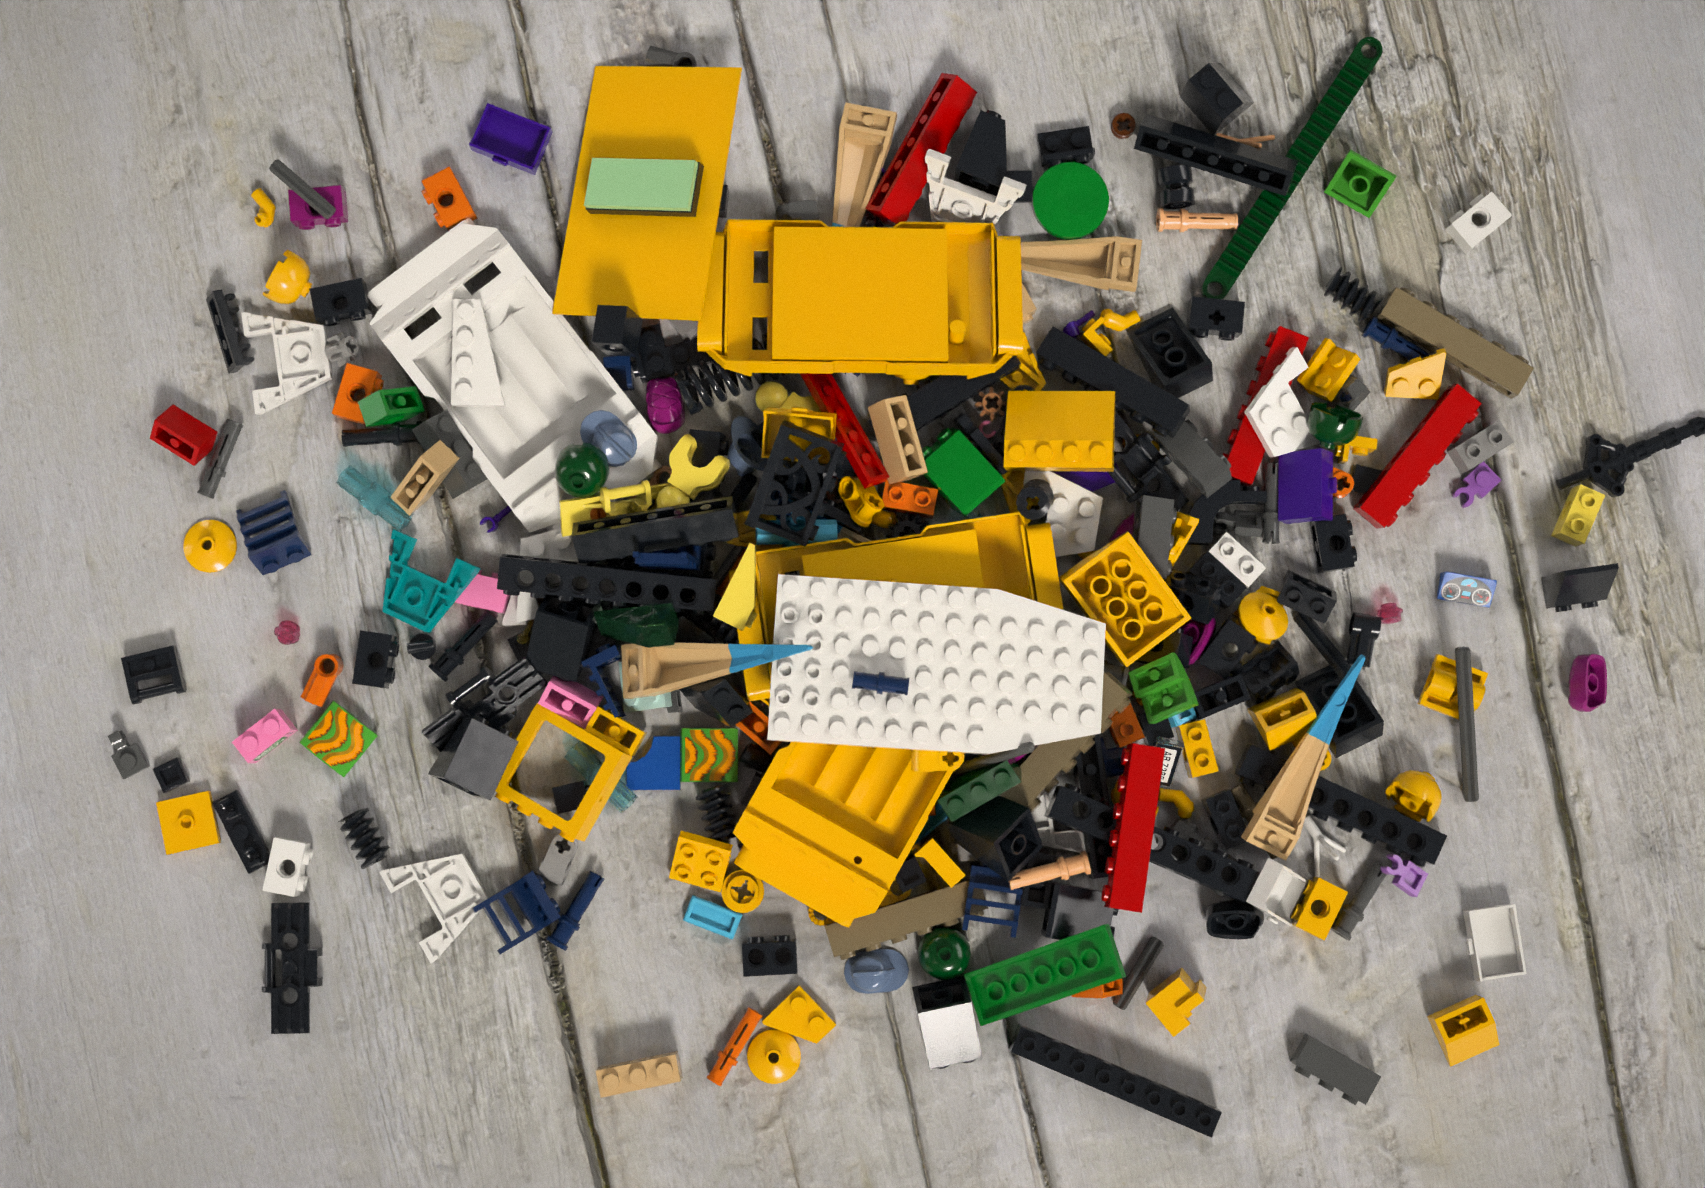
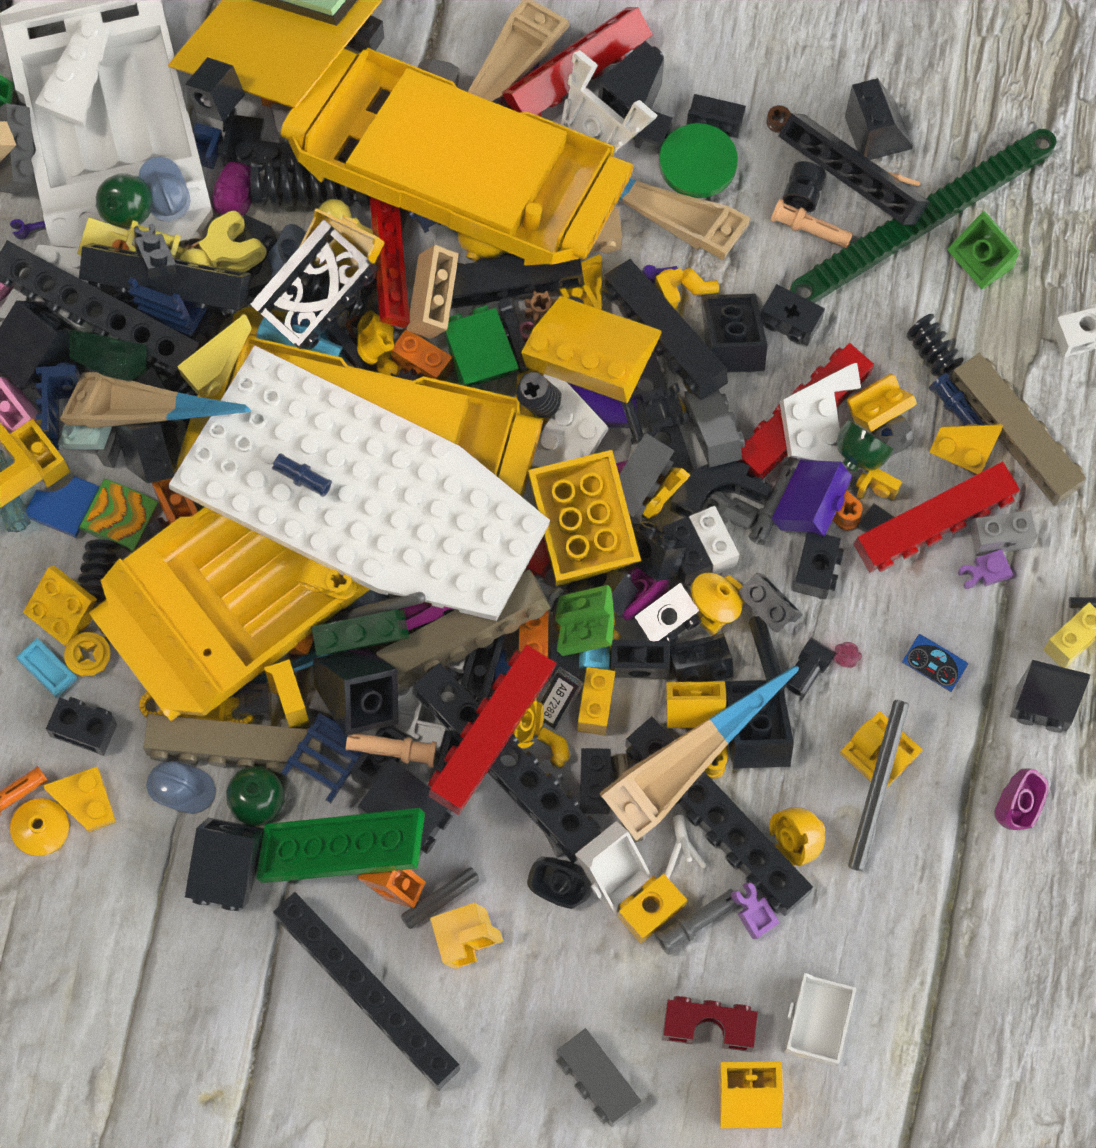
camera: 25 degrees right, 15 degrees down
(640, 517) = (153, 252): none -> black plate
(1384, 989) = (735, 1023): none -> dark red arch

